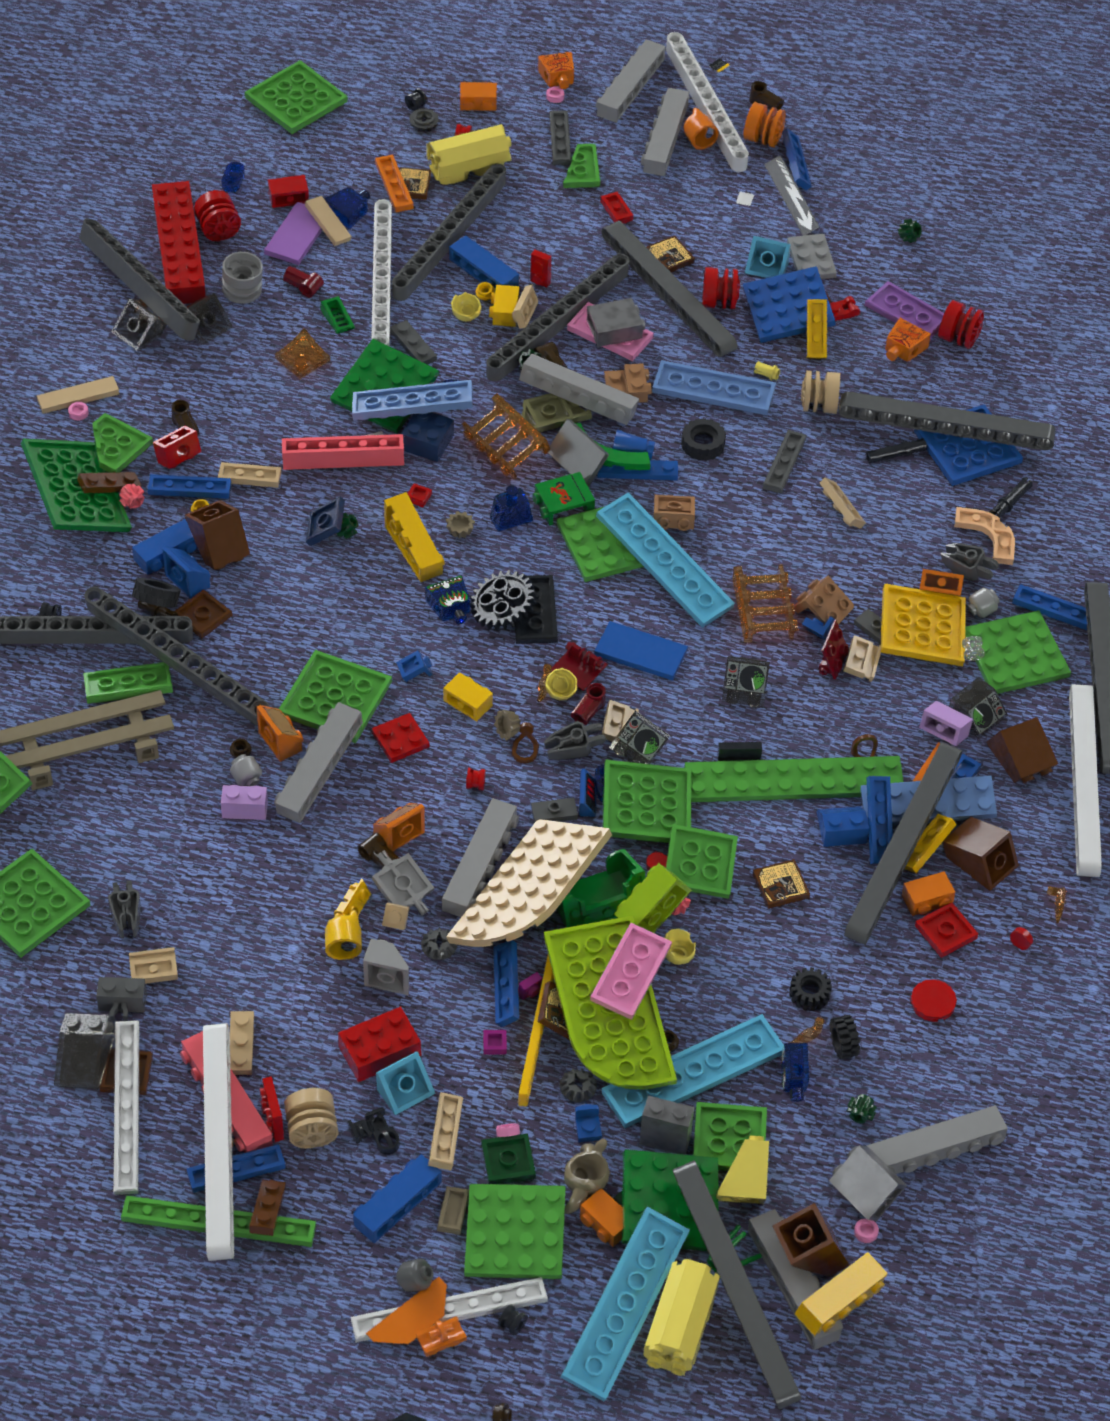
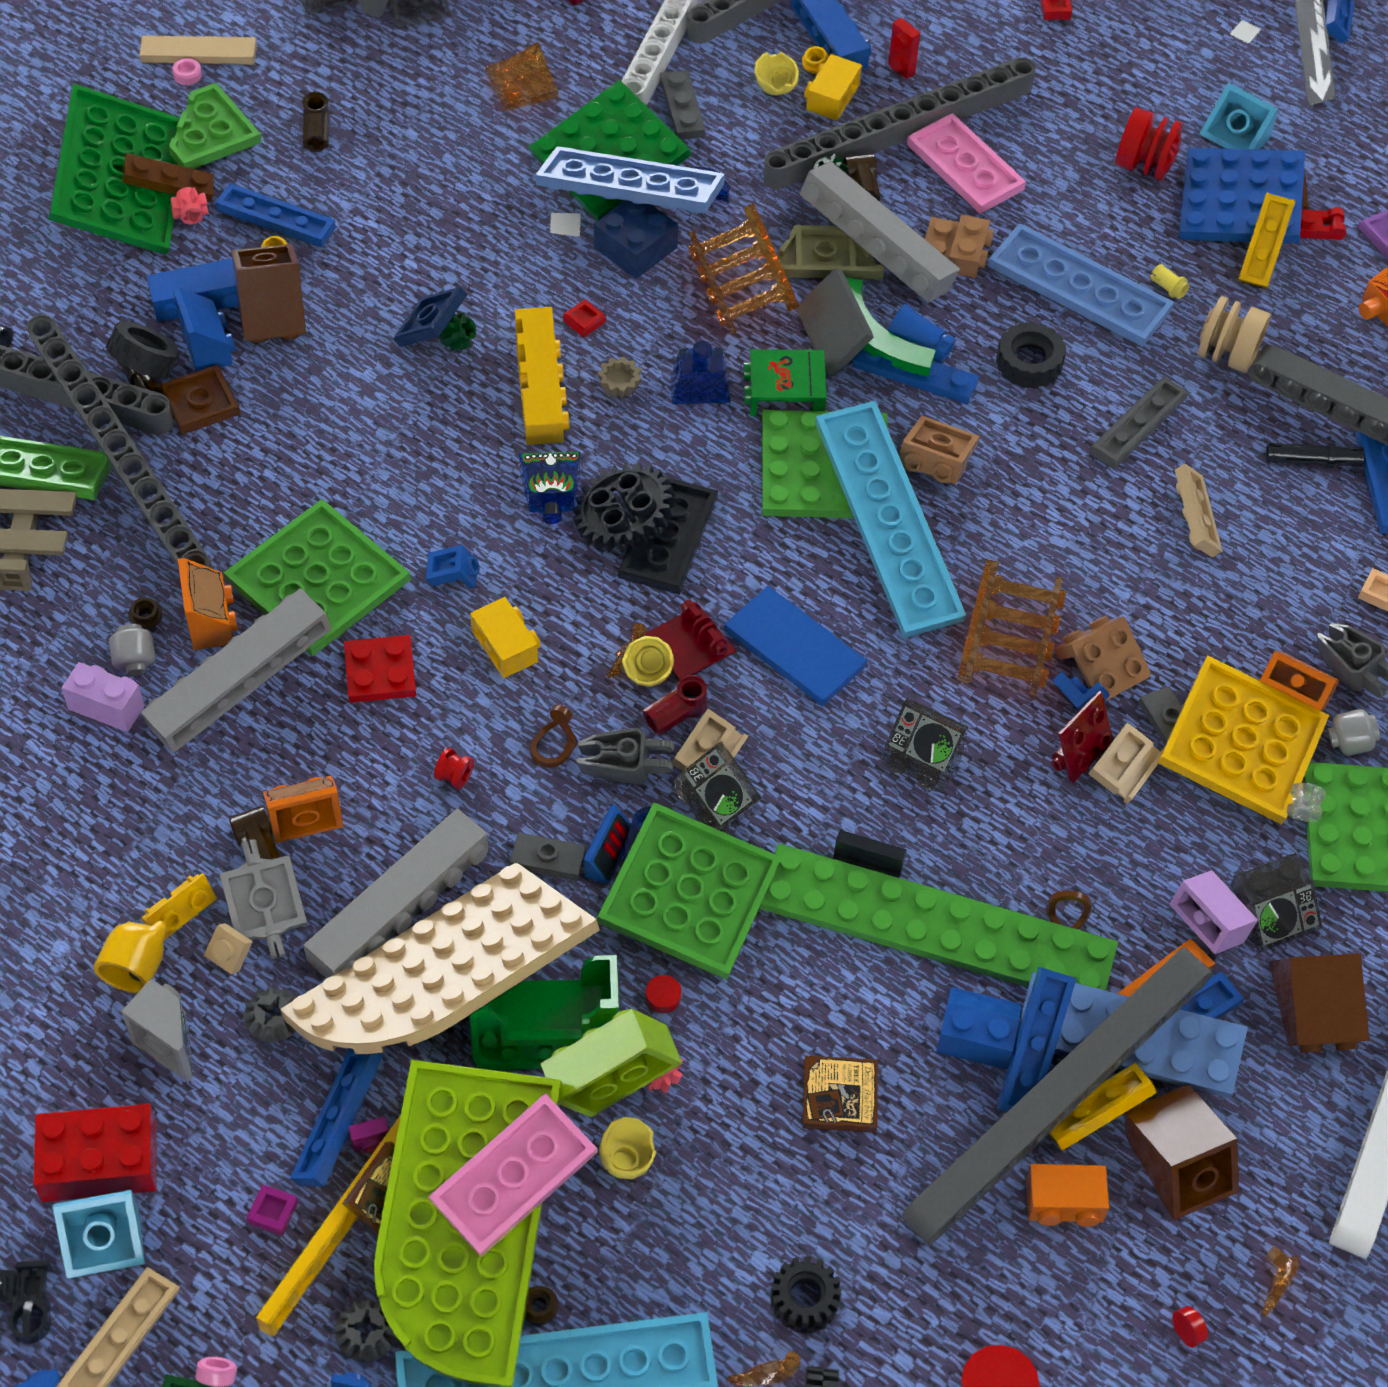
camera: 20 degrees right, 5 degrees up
(177, 447) = (269, 148): red brick -> none
(251, 474) = (366, 222): tan plate -> none
(335, 302) = (596, 20): green slope -> none
(343, 451) = (504, 226): coral brick -> none
(507, 724) = (540, 697): dark tan piece -> none
(525, 307) = (857, 95): tan plate -> none
(615, 322) = (975, 150): flat silver brick -> none
(670, 289) = (1079, 129): dark grey beam -> none
(672, 253) = (1099, 80): tile -> none
(702, 859) = (728, 1015): bright green plate -> none
(810, 252) = (1312, 130): light grey plate -> none
(946, 930) = (1071, 1267): red plate -> none

